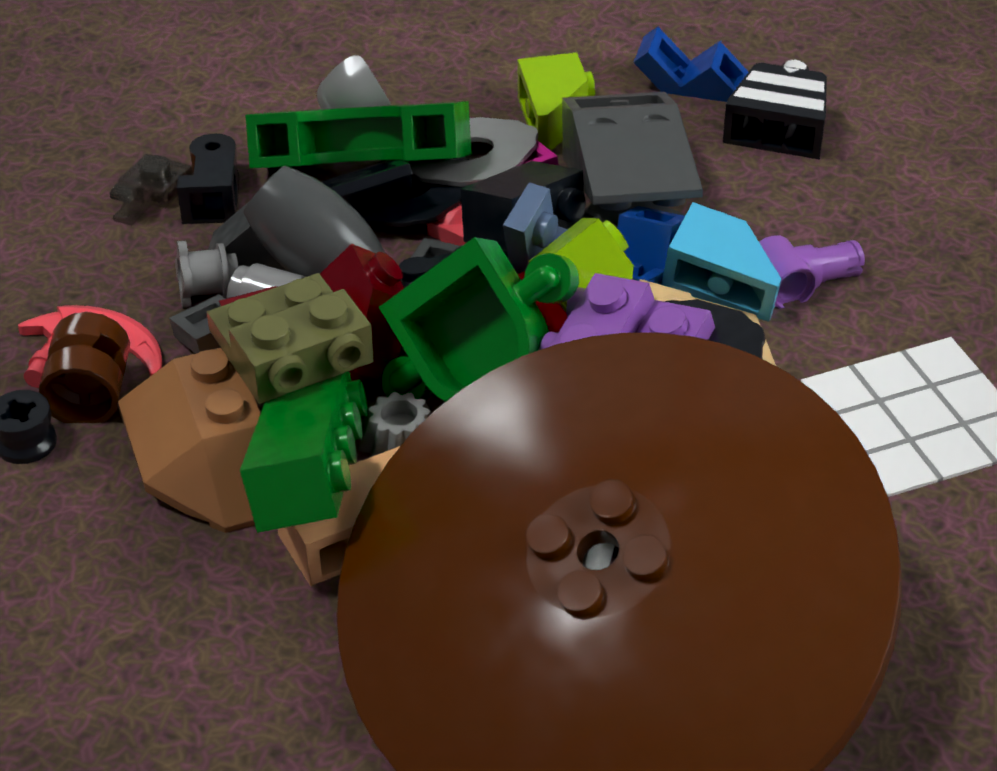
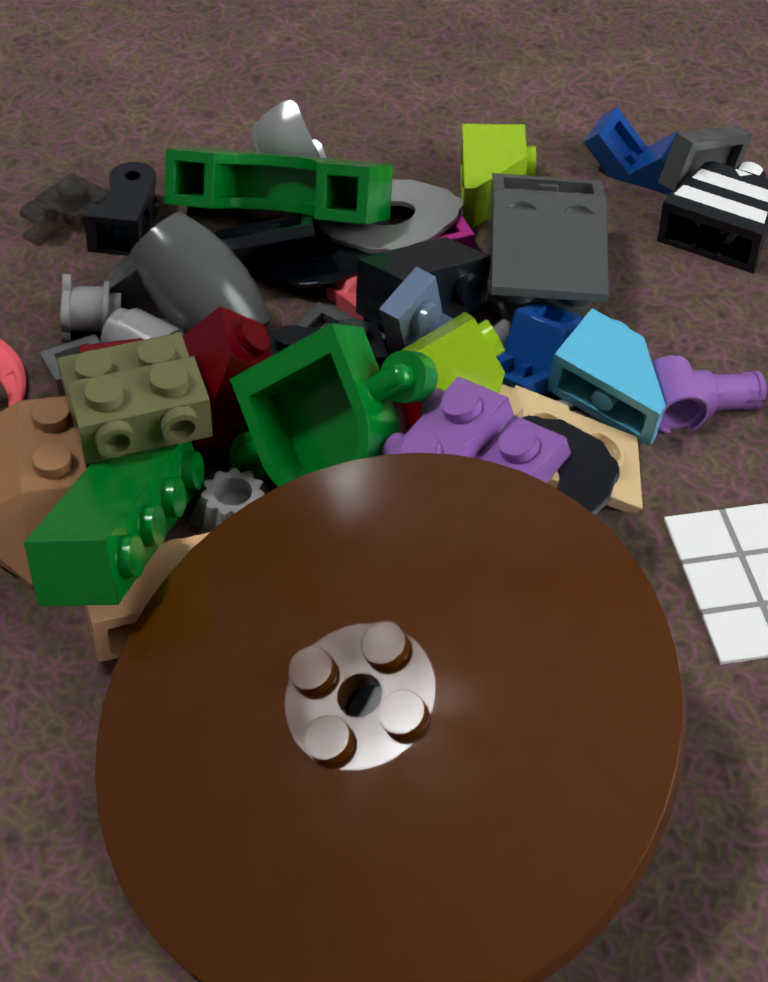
camera: 10 degrees right, 5 degrees up
(744, 51) = (696, 147): none -> dark grey tile

